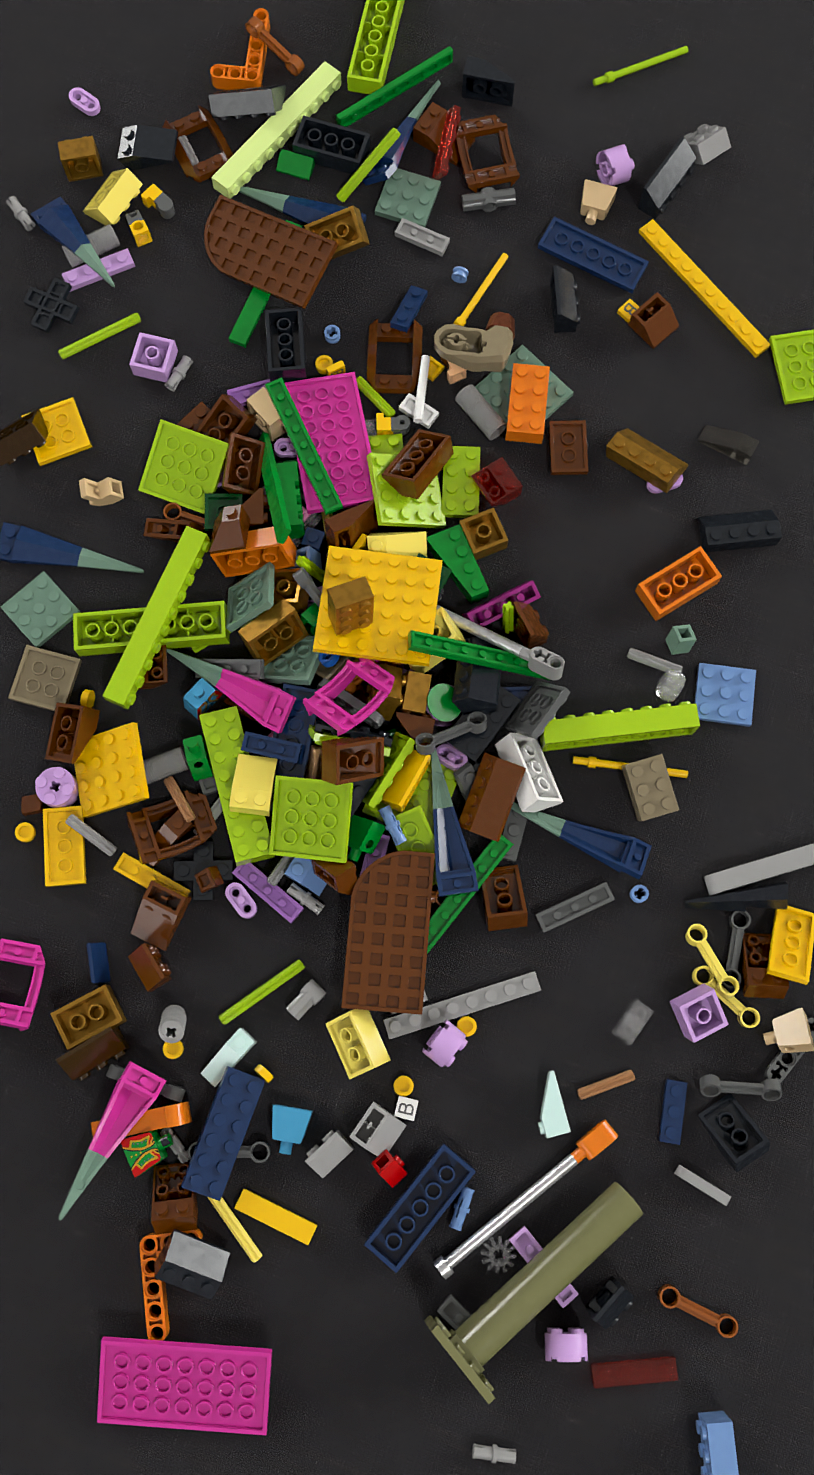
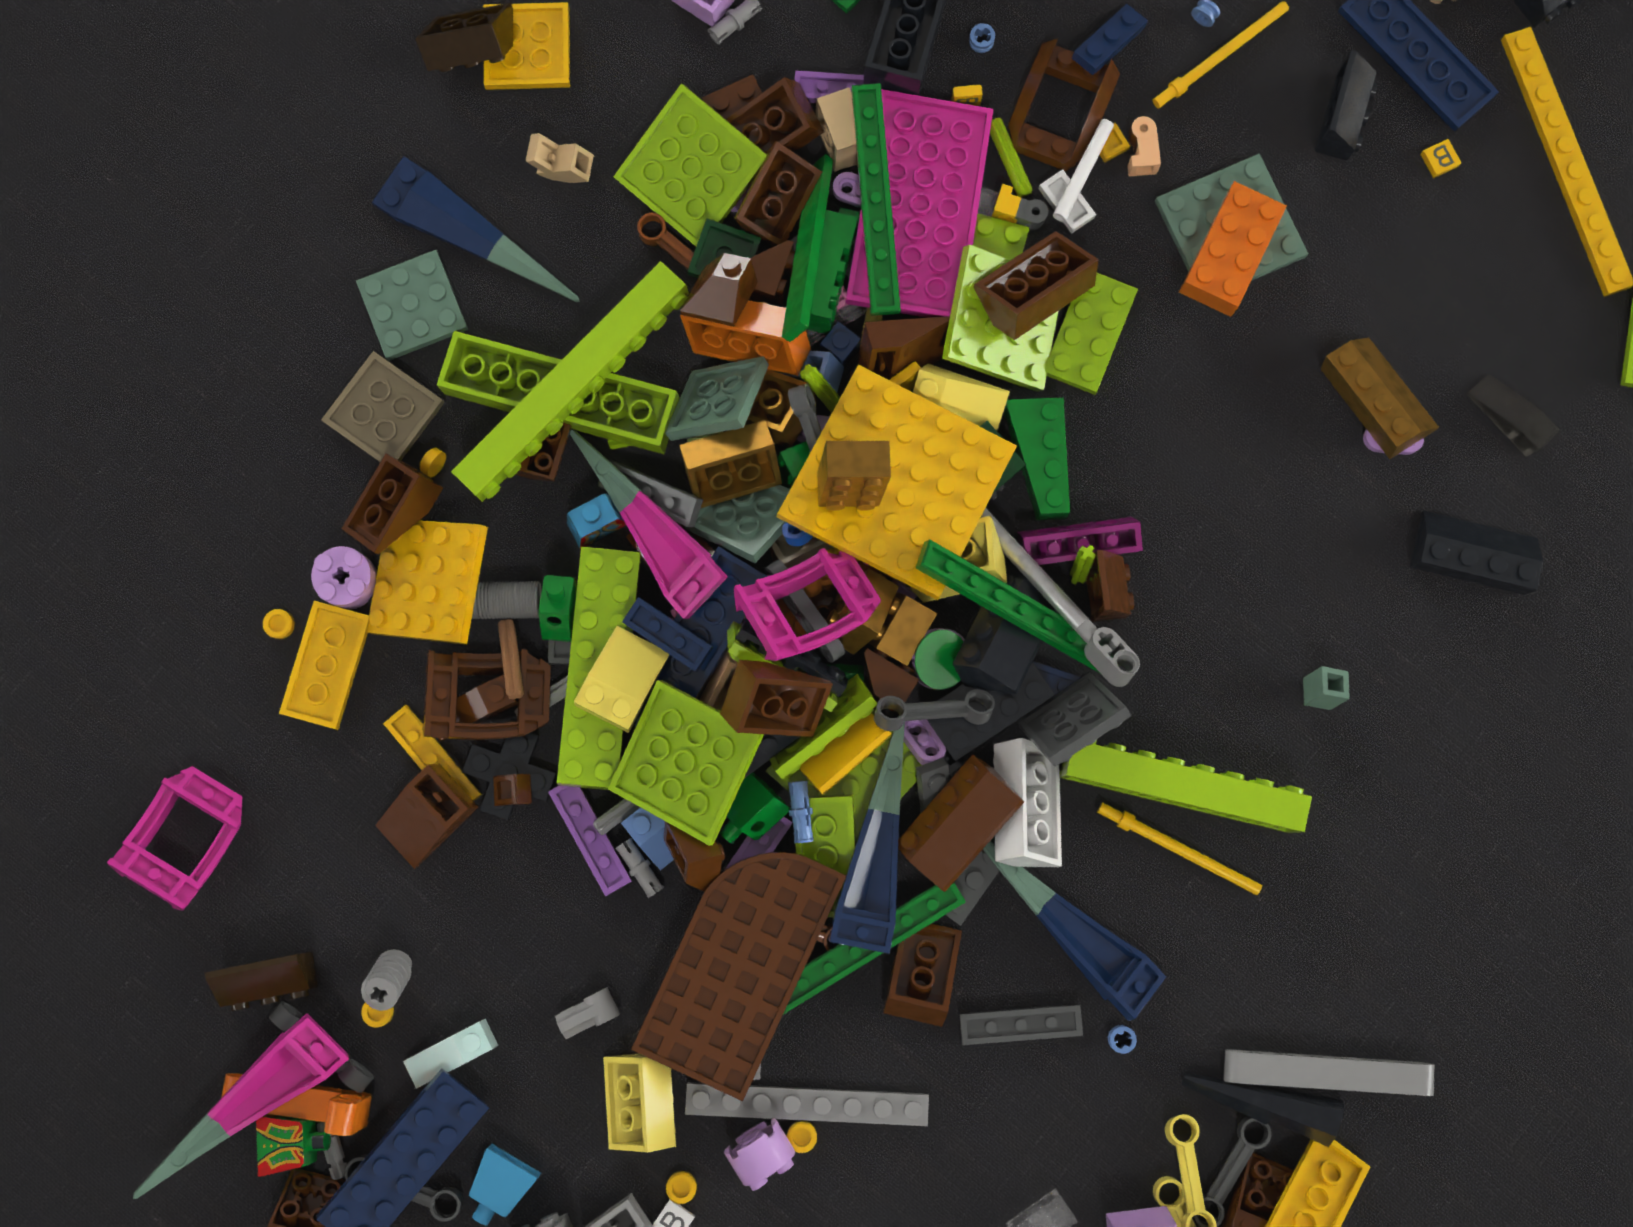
camera: 20 degrees right, 5 degrees up
(31, 805) = (299, 588): reddish brown slope -> none
(88, 1016) = (273, 925): pearl gold brick -> none
(91, 835) = (368, 663): light grey axle -> none
(98, 963) = (315, 851): dark blue slope -> none
(149, 966) = (385, 885): reddish brown slope -> none
(168, 529) = (638, 252): reddish brown slope -> none
(241, 900) = (548, 836): lavender plate -> none
(261, 992) = (529, 978): lime axle -> none
(263, 1073) = (490, 1096): yellow tile -> none
(322, 362) = (952, 77): yellow tile -> none
(477, 348) = (1188, 138): dark tan piece -> none
(480, 412) = (1162, 245): light grey piece -> none
(484, 533) = (1094, 424): pearl gold brick -> none
(498, 483) = (1143, 354): clear red slope -> none
(568, 447) = (1269, 336): reddish brown plate -> none
(650, 787) = (1196, 892): dark tan brick -> none
(652, 661) = (1274, 706): light grey axle -> none
(654, 320) = (1472, 187): reddish brown slope -> none
(670, 685) = (1284, 751): clear gear -> none
(678, 583) = (1354, 602): orange brick -> none
(725, 694) = (1360, 791): medium blue plate -> none

